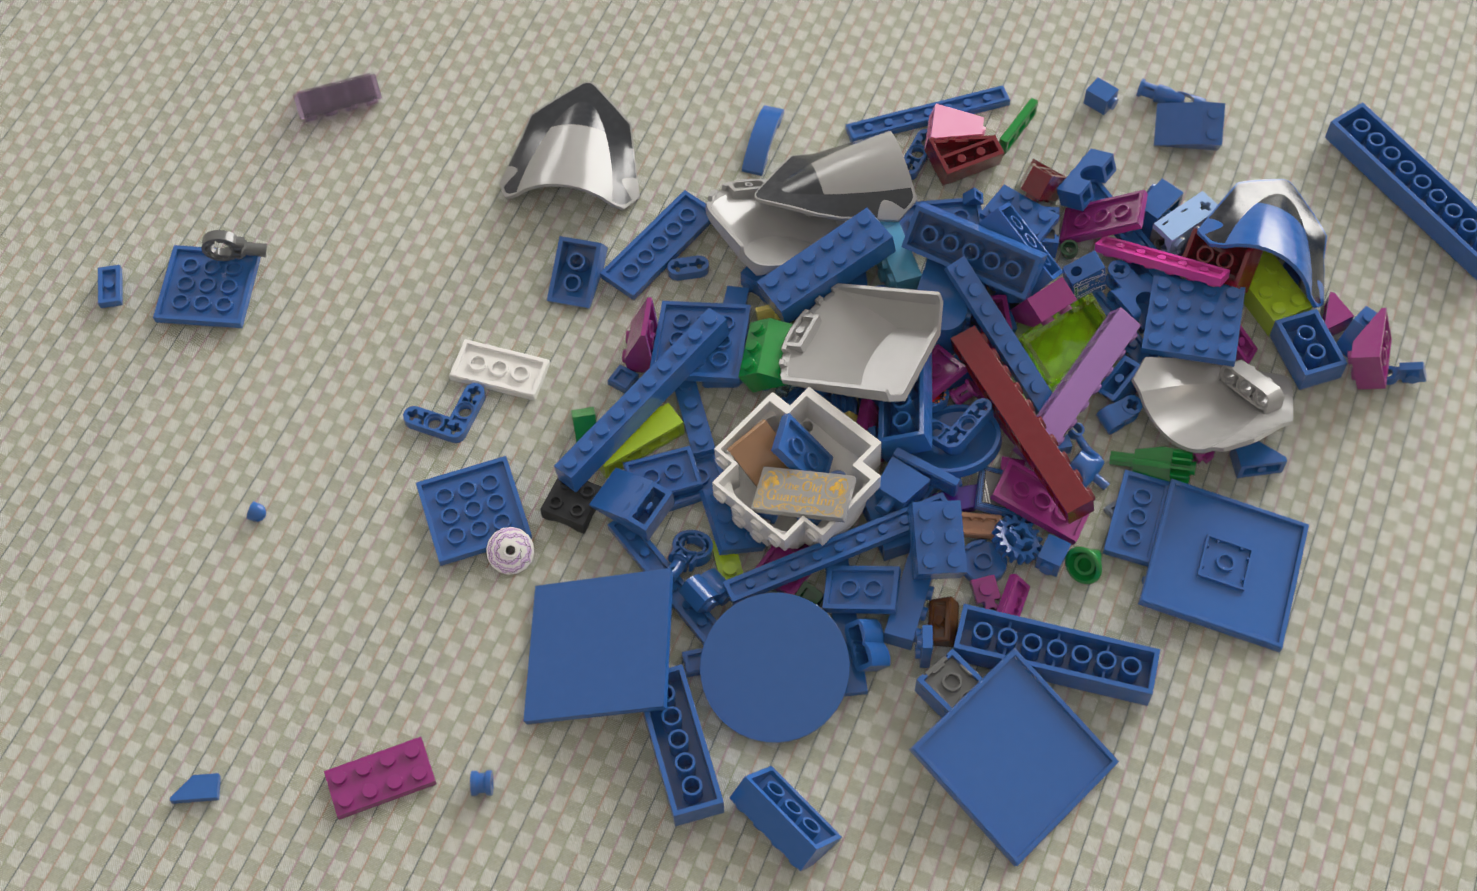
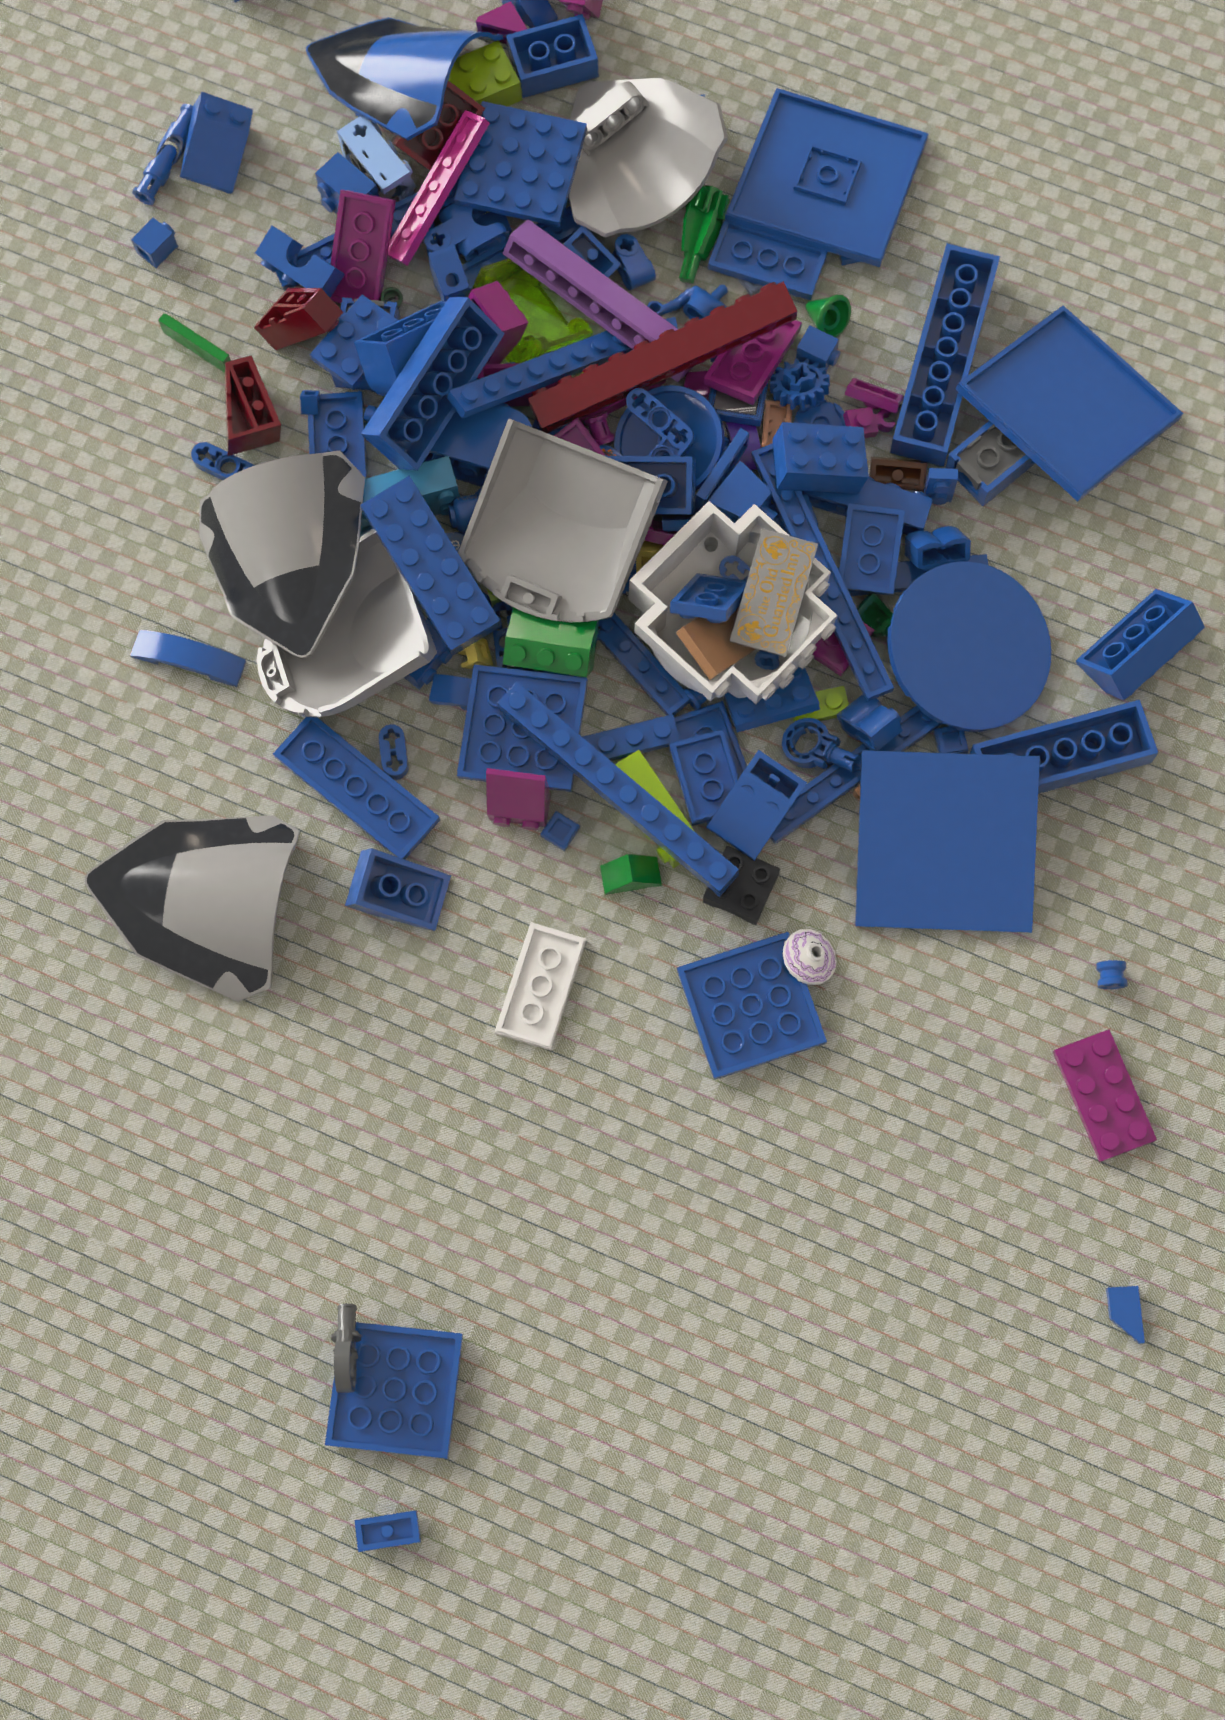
camera: 85 degrees left, 15 degrees up
(256, 512) = (750, 1281): blue hinge -> none
(336, 96) = (67, 1237): clear purple slope -> none
(453, 422) = (617, 1037): blue beam -> none
(919, 116) = (163, 453): blue tile -> none
(950, 122) = (197, 420): bright pink slope -> none

